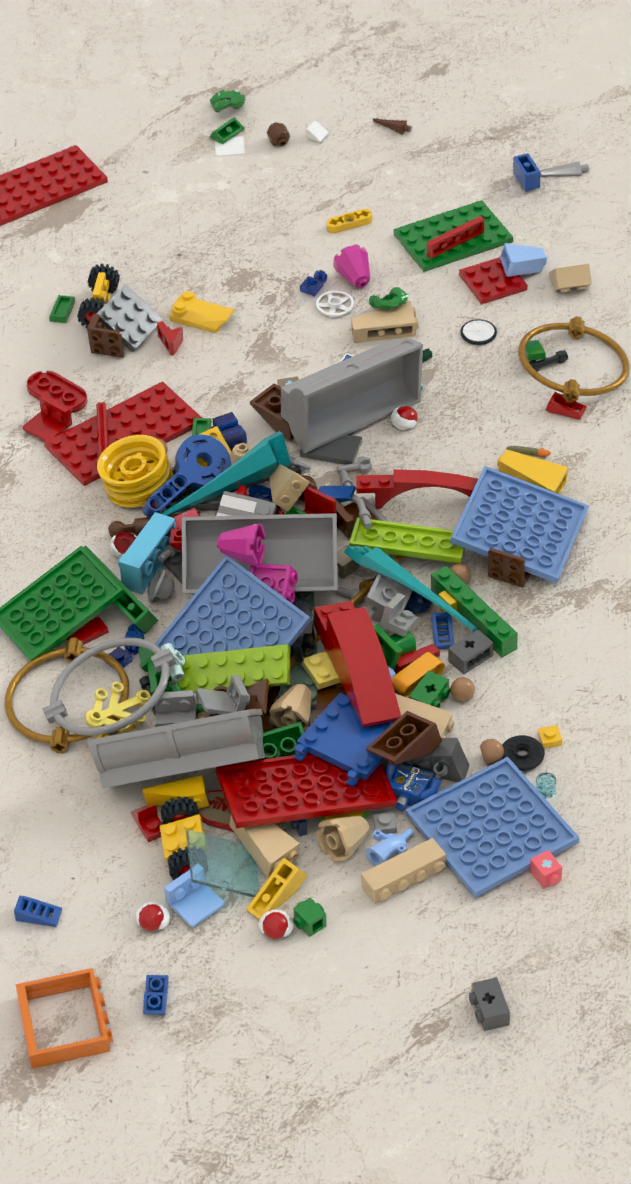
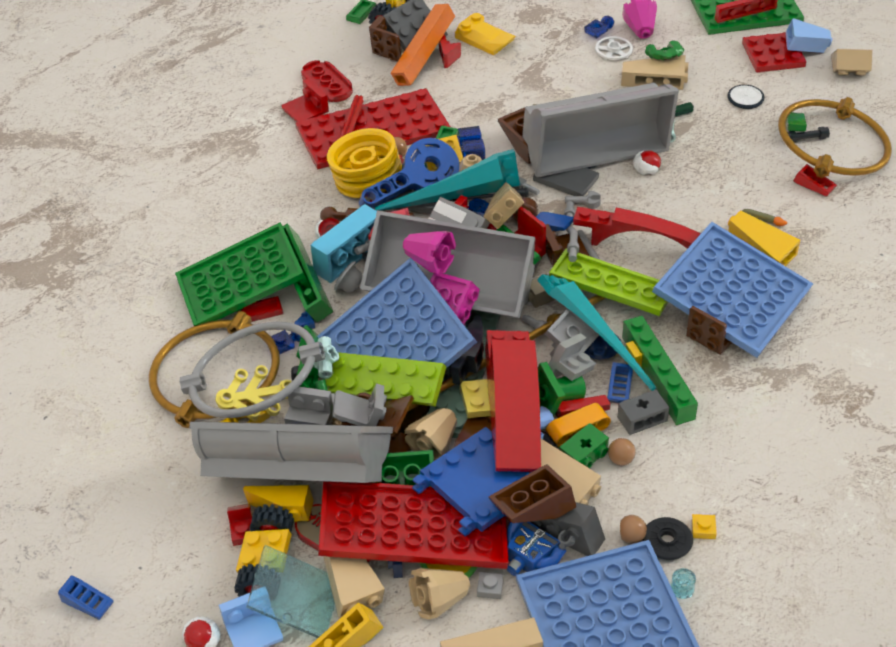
camera: 15 degrees right, 0 degrees up
(145, 336) = (422, 44): none -> orange brick
(388, 847) = (483, 616): light blue piece -> none
(462, 572) = (658, 326): medium nougat piece -> none

